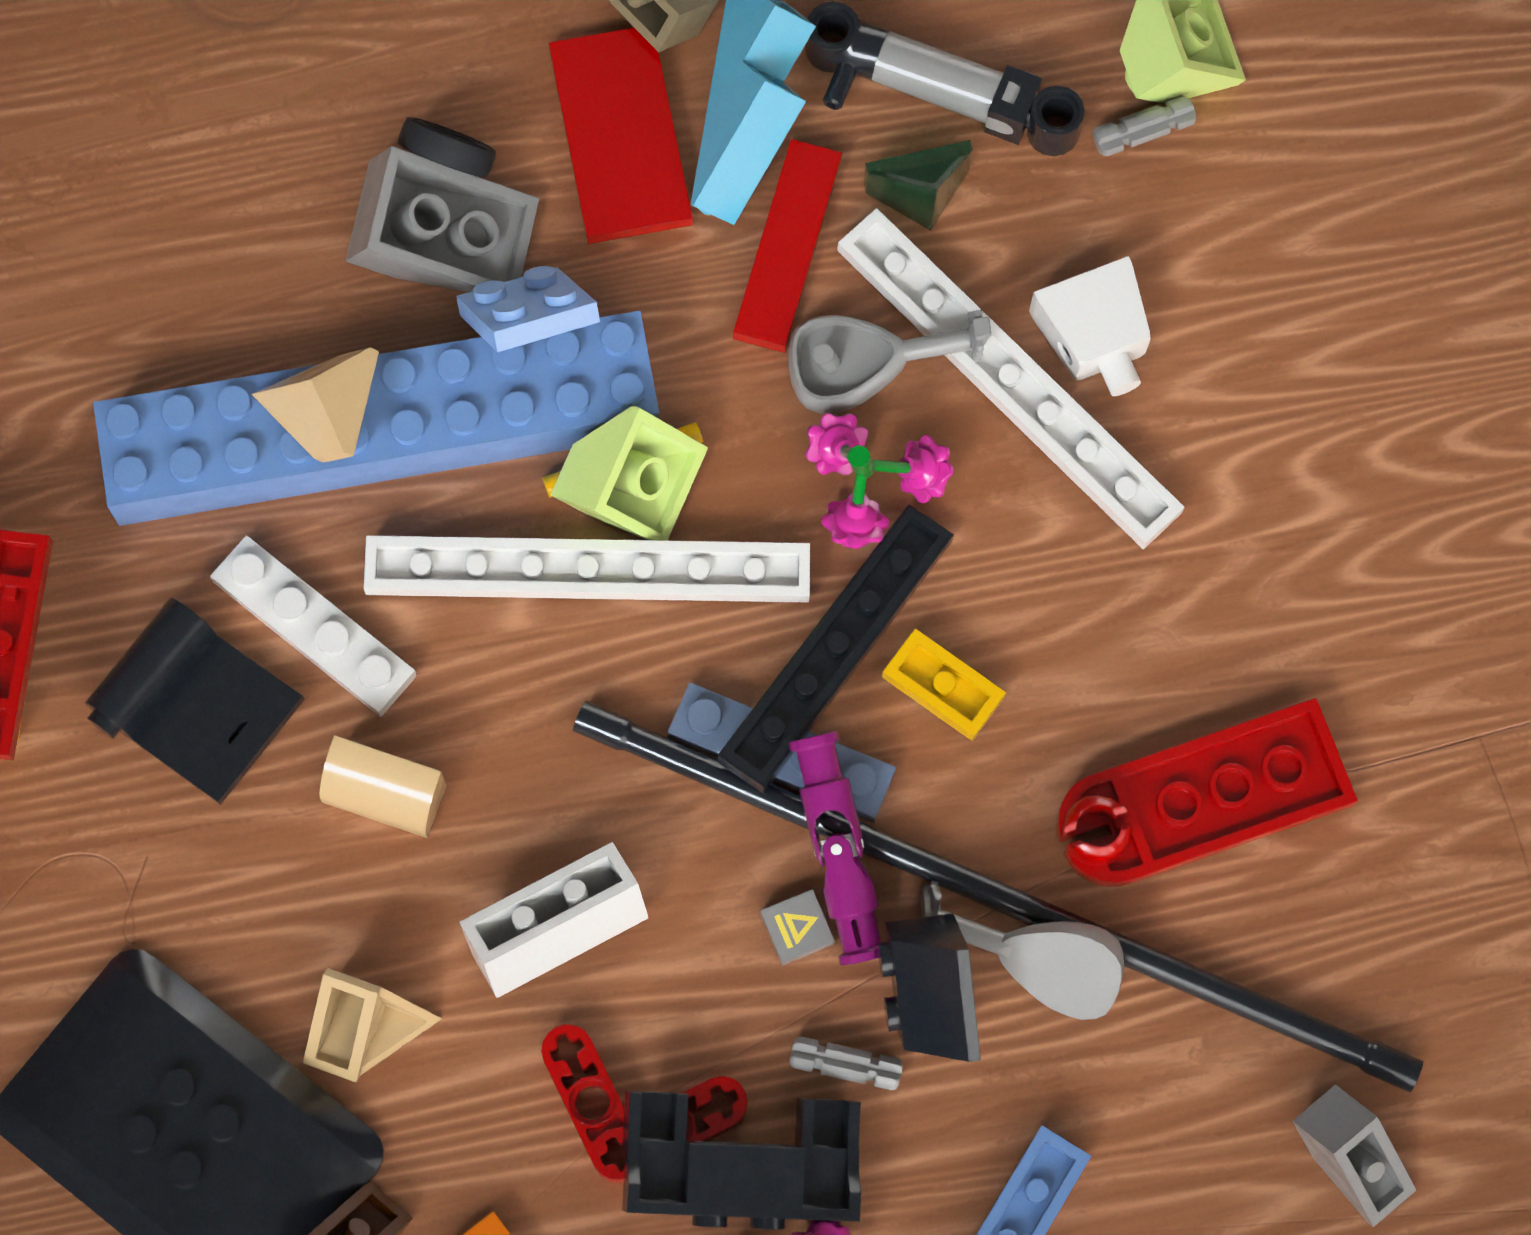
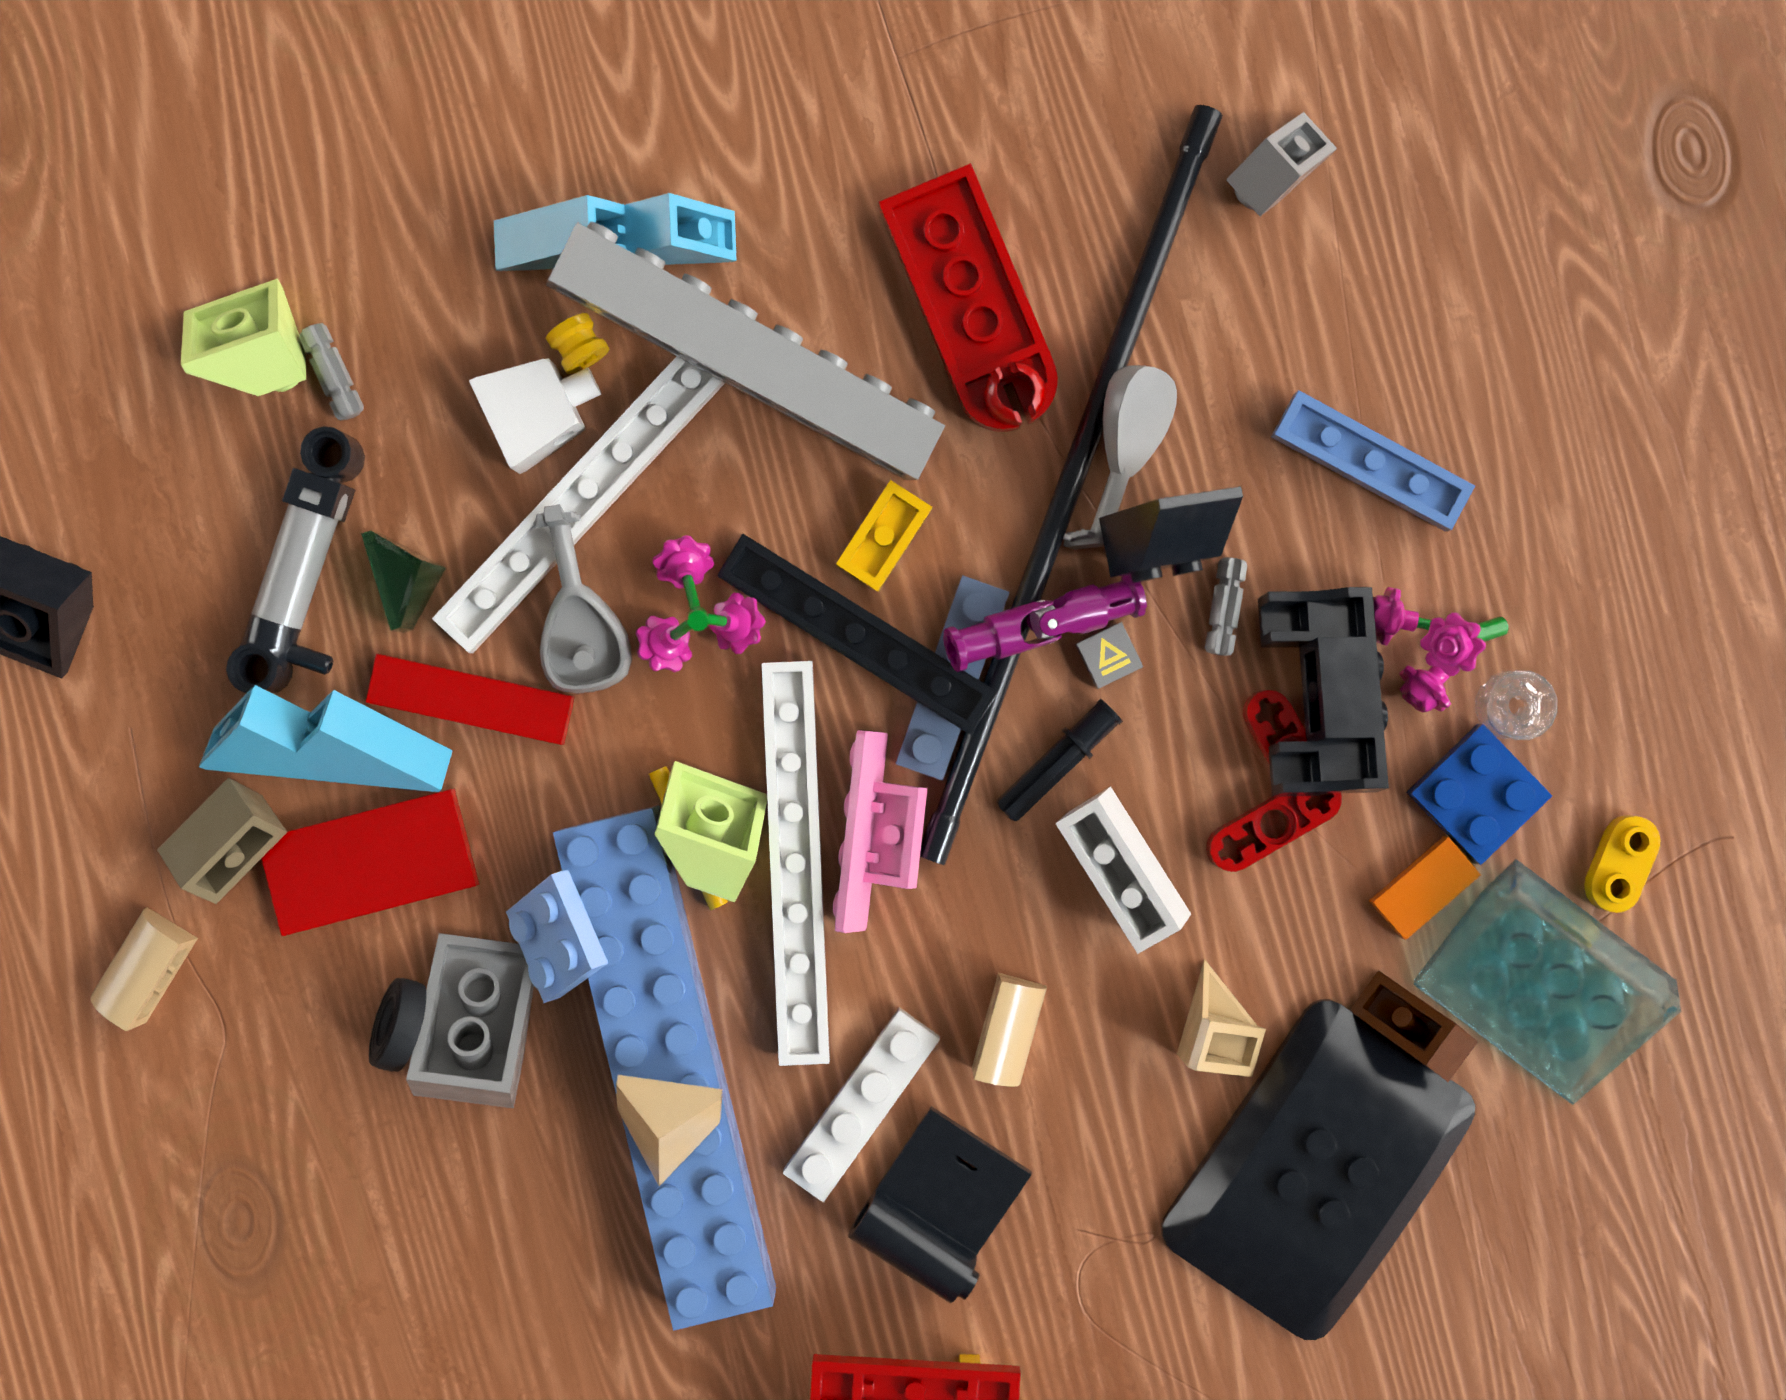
camera: 85 degrees left, 15 degrees up
(613, 656) = (880, 833): none -> bright pink bracket
(681, 863) = (1059, 760): none -> black axle
(1146, 536) = (743, 352): none -> light grey brick
(1167, 373) = (577, 343): none -> yellow wheel
(1282, 421) = (665, 225): none -> medium azure slope

